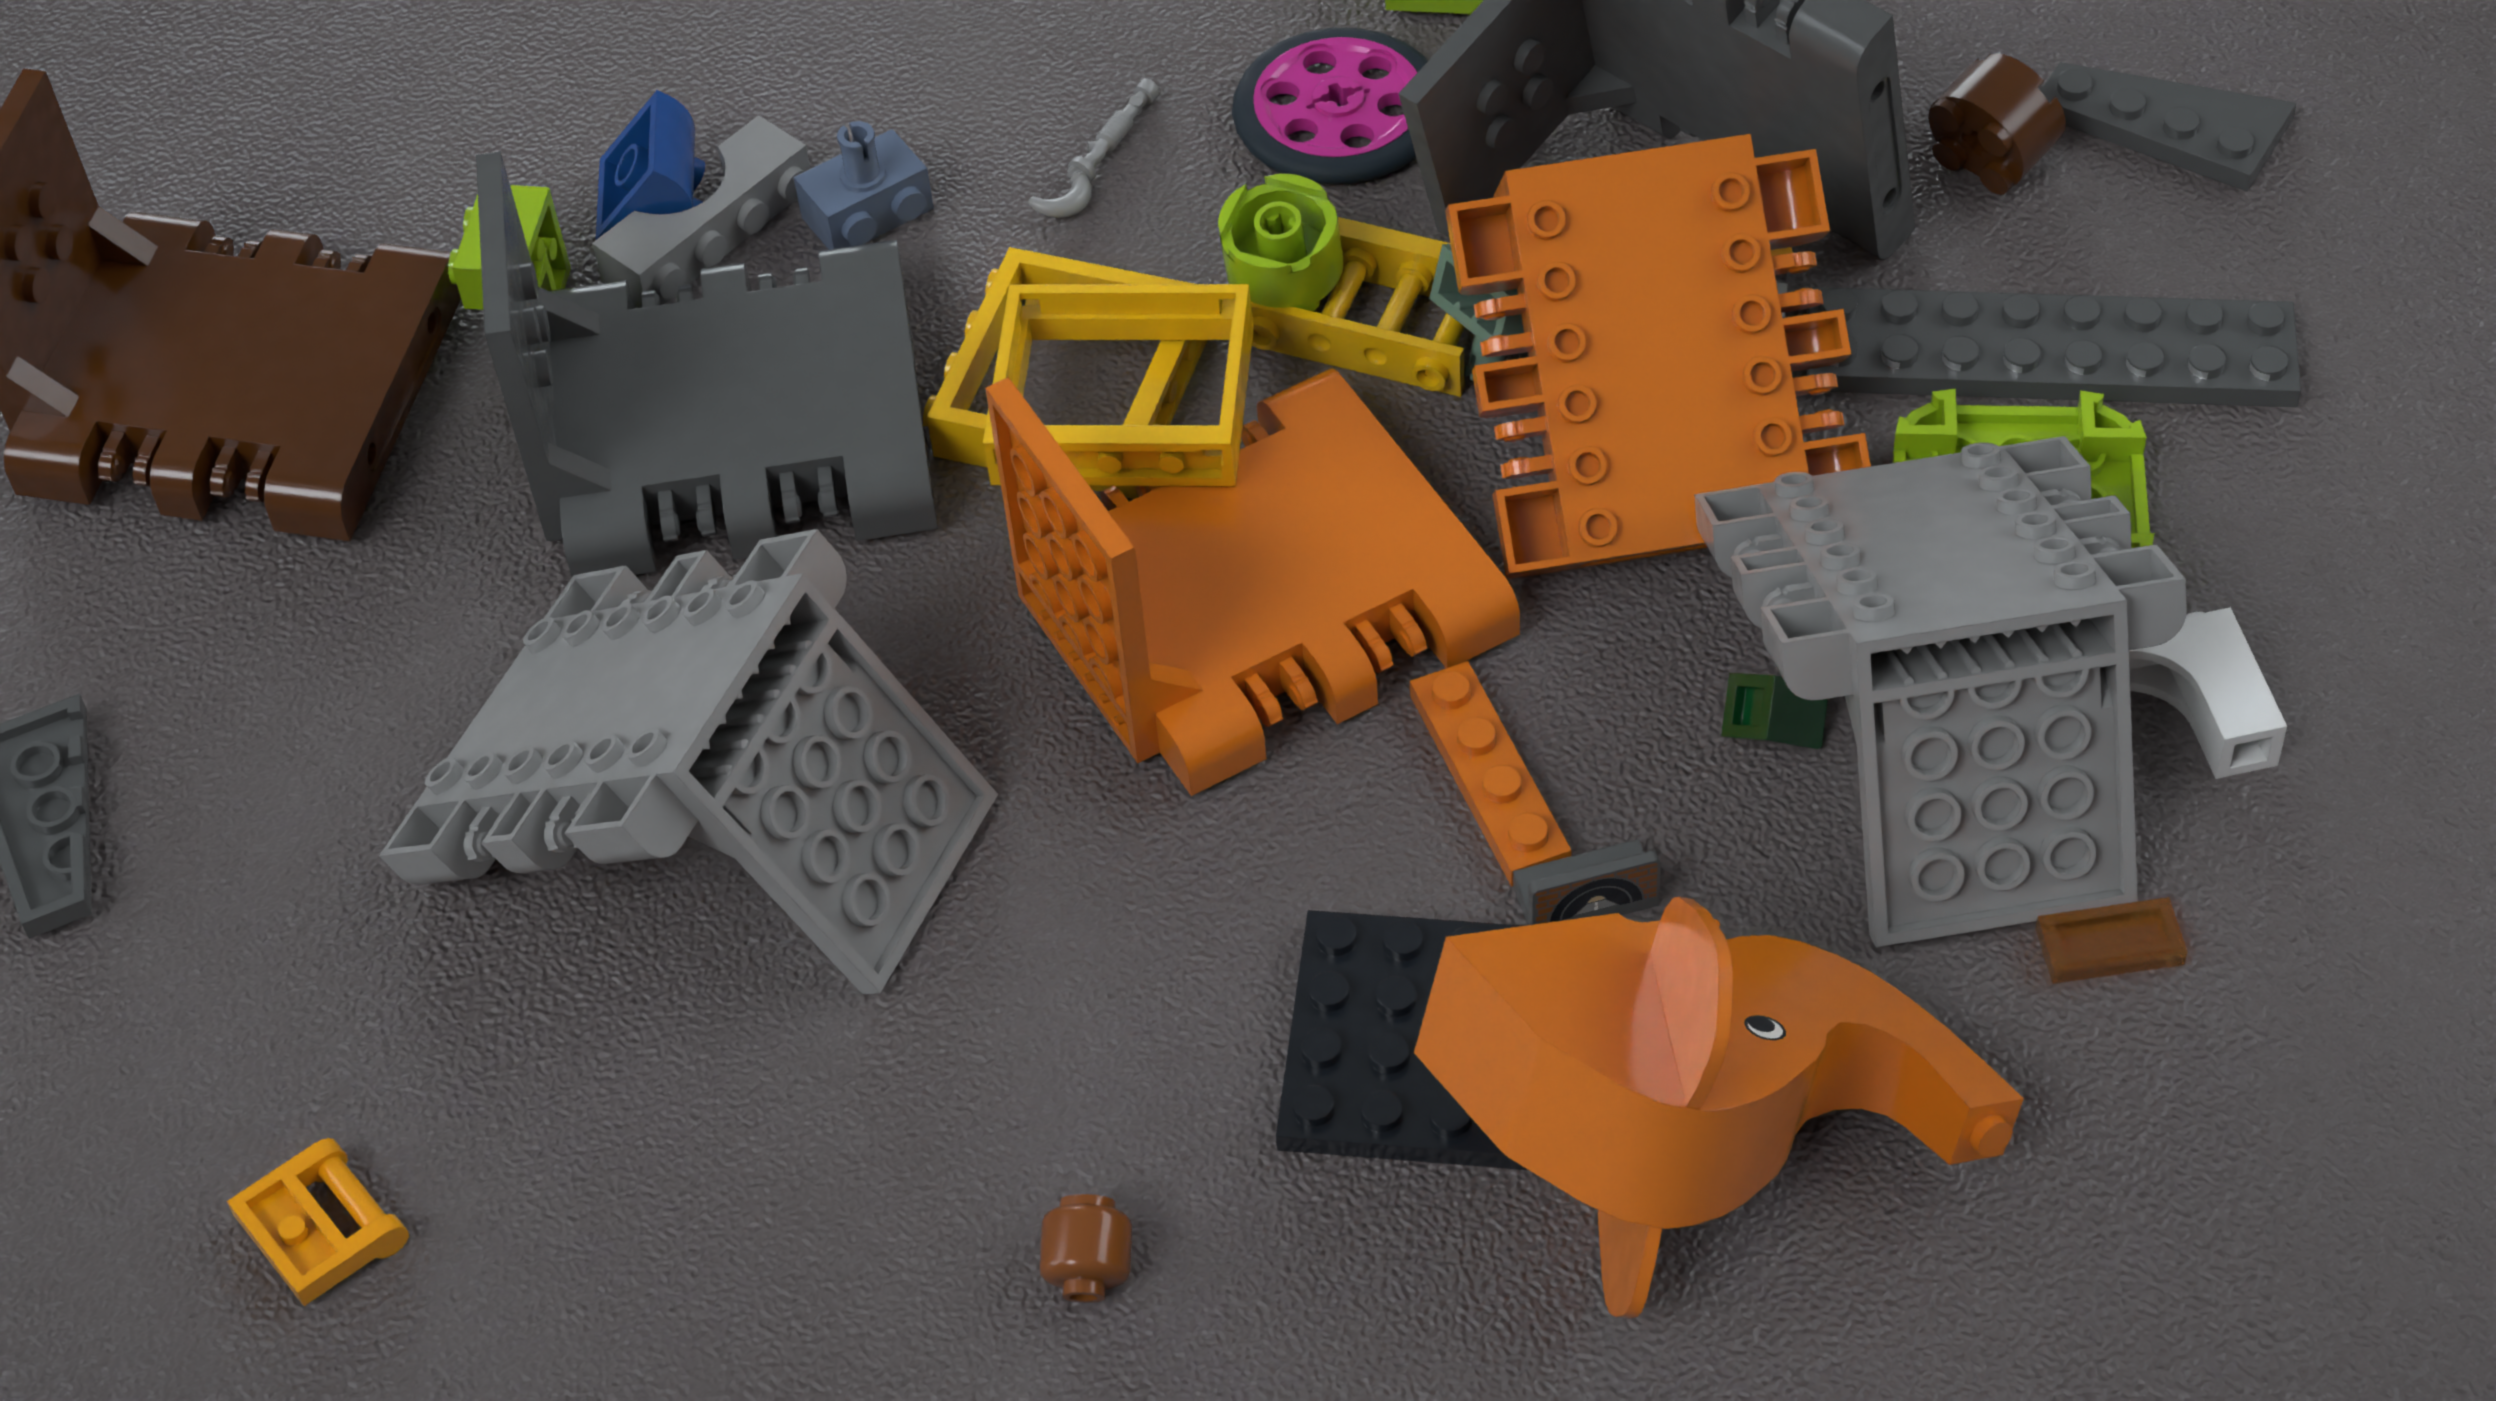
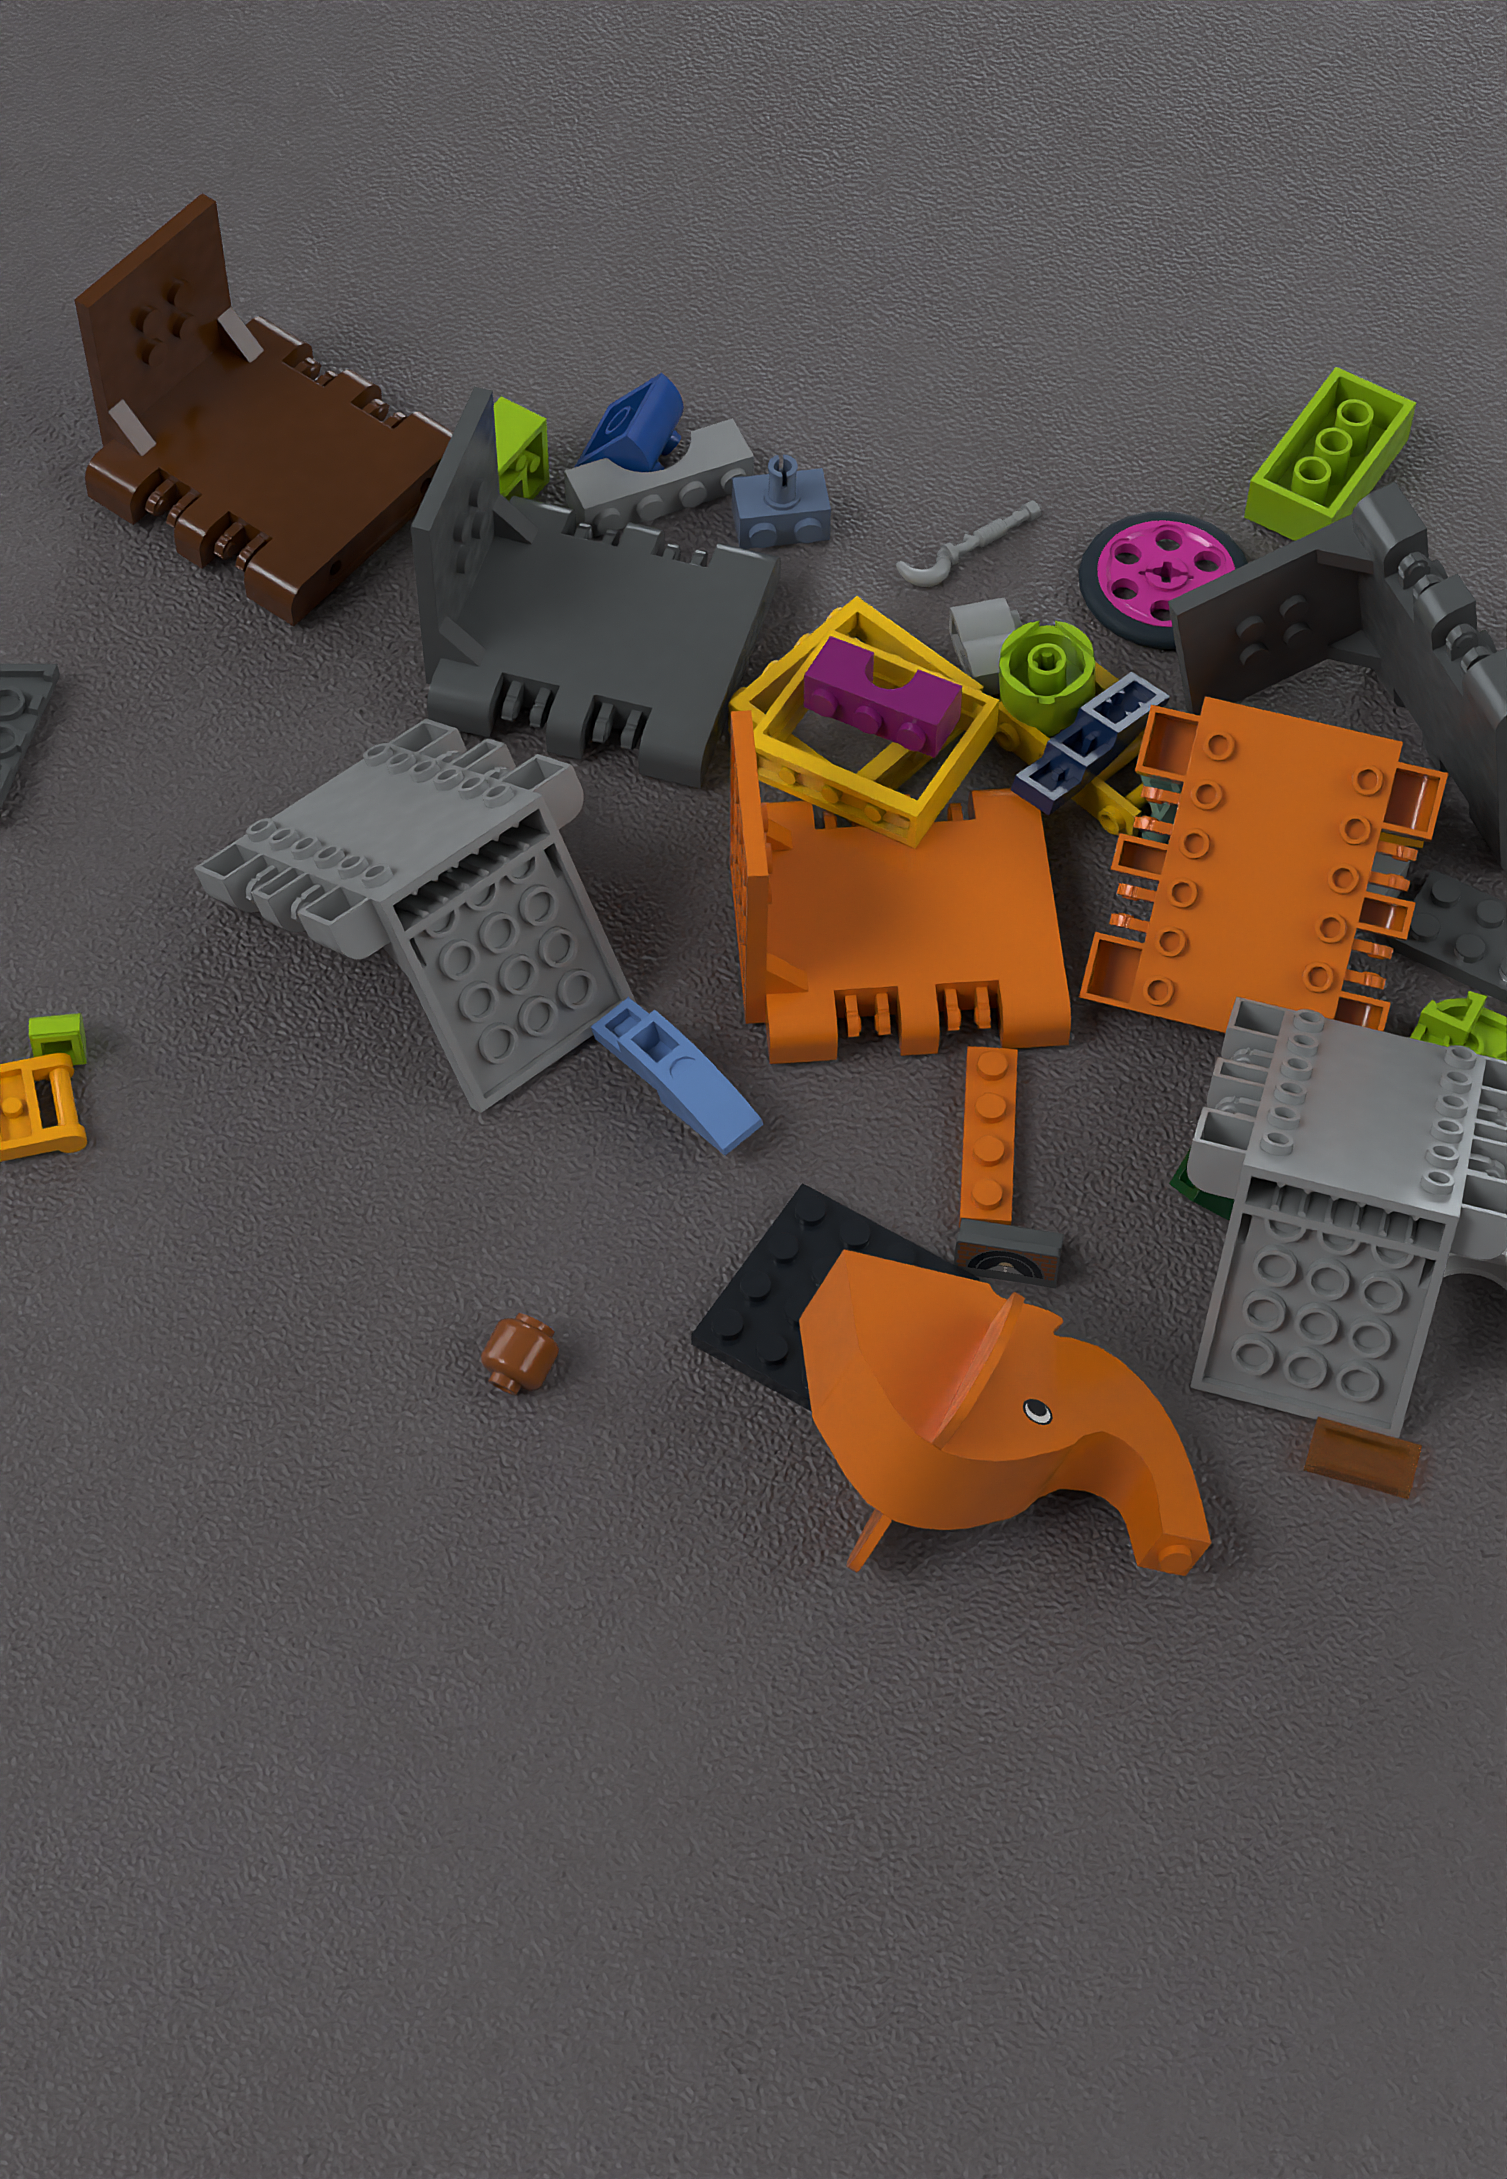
camera: 20 degrees right, 5 degrees up
(307, 1120) = (59, 1035): none -> lime brick
(1097, 842) = (679, 1073): none -> medium blue slope
(1160, 338) = (914, 715): none -> magenta arch
(1176, 239) = (978, 637): none -> light grey brick
(1367, 297) = (1090, 744): none -> dark blue slope

